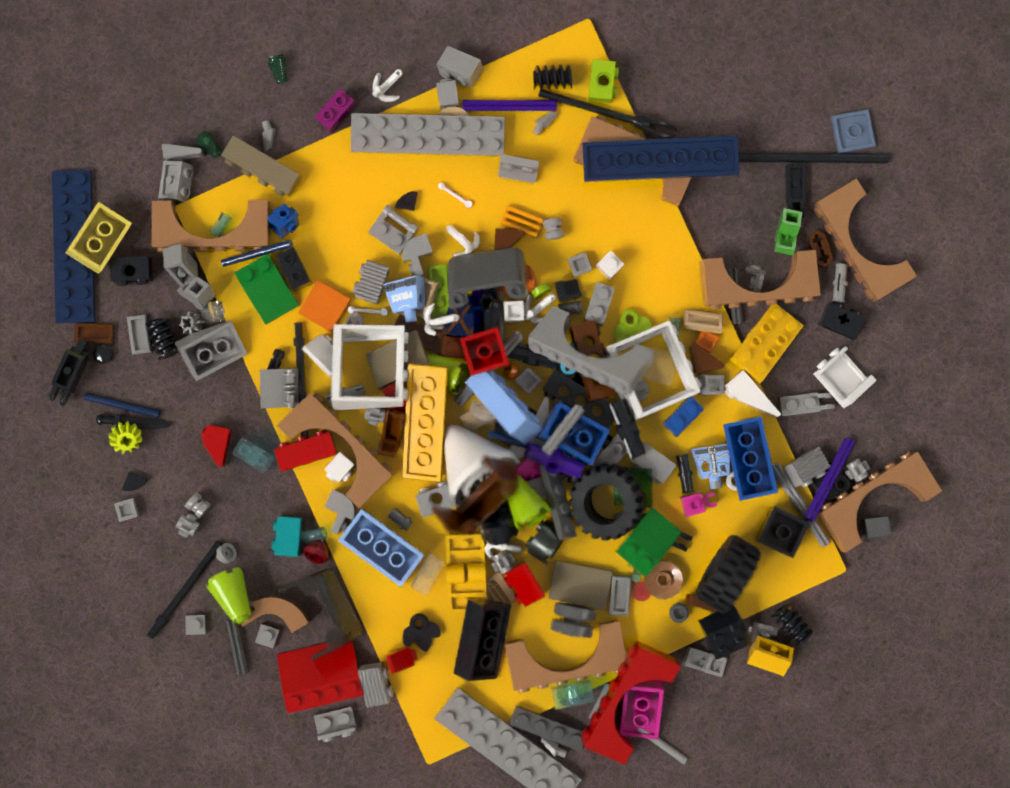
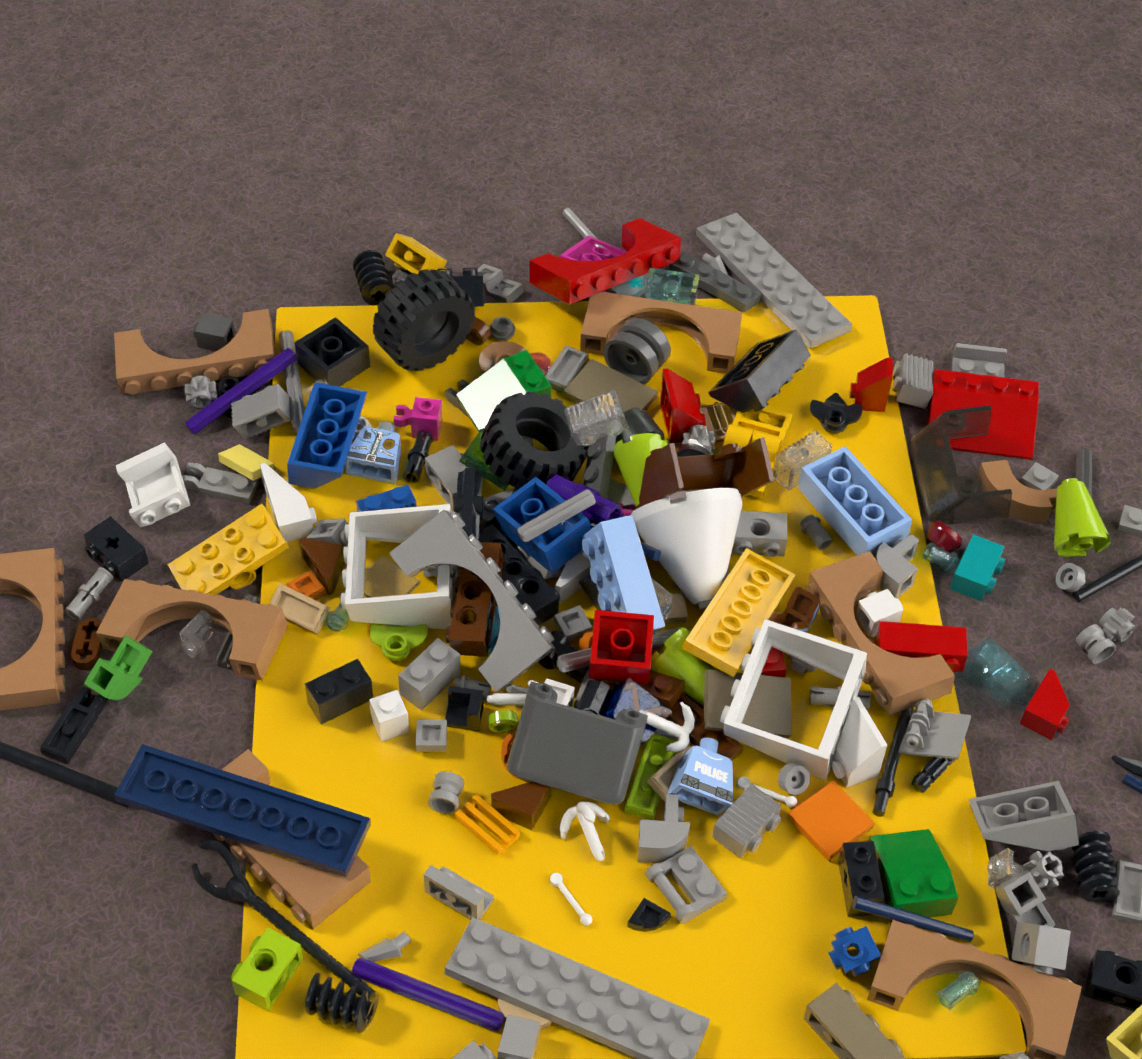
camera: 155 degrees left, 35 degrees down
(569, 522) = (596, 418): none -> clear brick
(647, 269) = (339, 691): none -> black brick
(796, 424) = (244, 461): none -> light yellow tile

